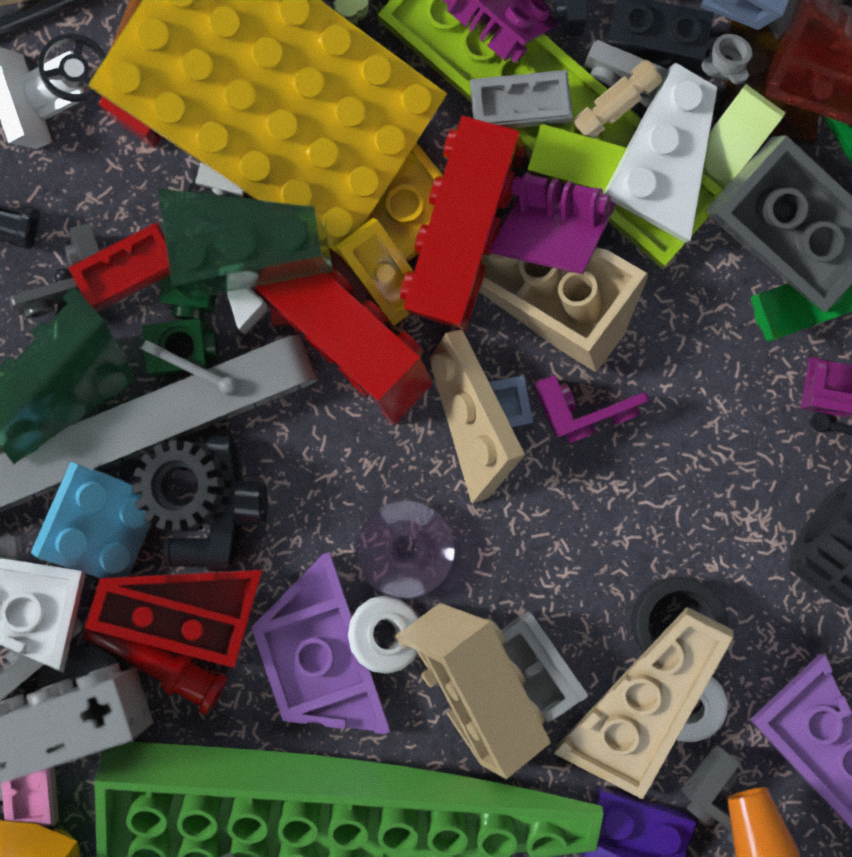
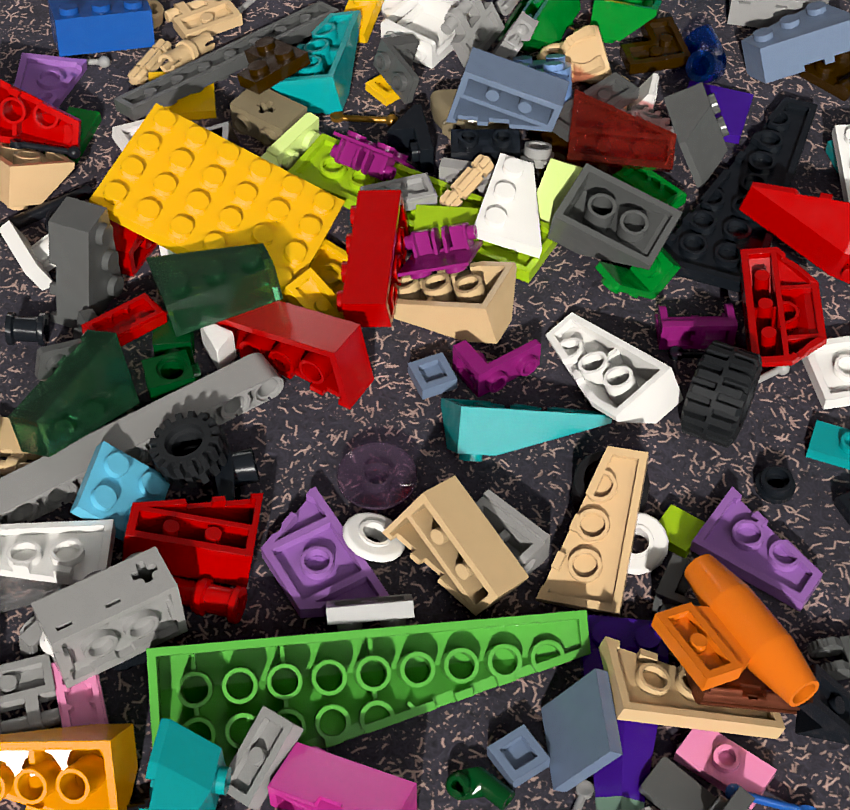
camera: 15 degrees left, 35 degrees down
(80, 157) = (84, 260): none -> dark grey wedge
(227, 385) = (153, 368): light grey hinge -> none
(359, 751) = (389, 610): none -> plate
(475, 418) = (413, 382): tan wing -> none
(572, 508) = (489, 429): none -> wedge
(726, 462) = (613, 373): none -> white wedge
(746, 691) = (680, 529): none -> lime tile

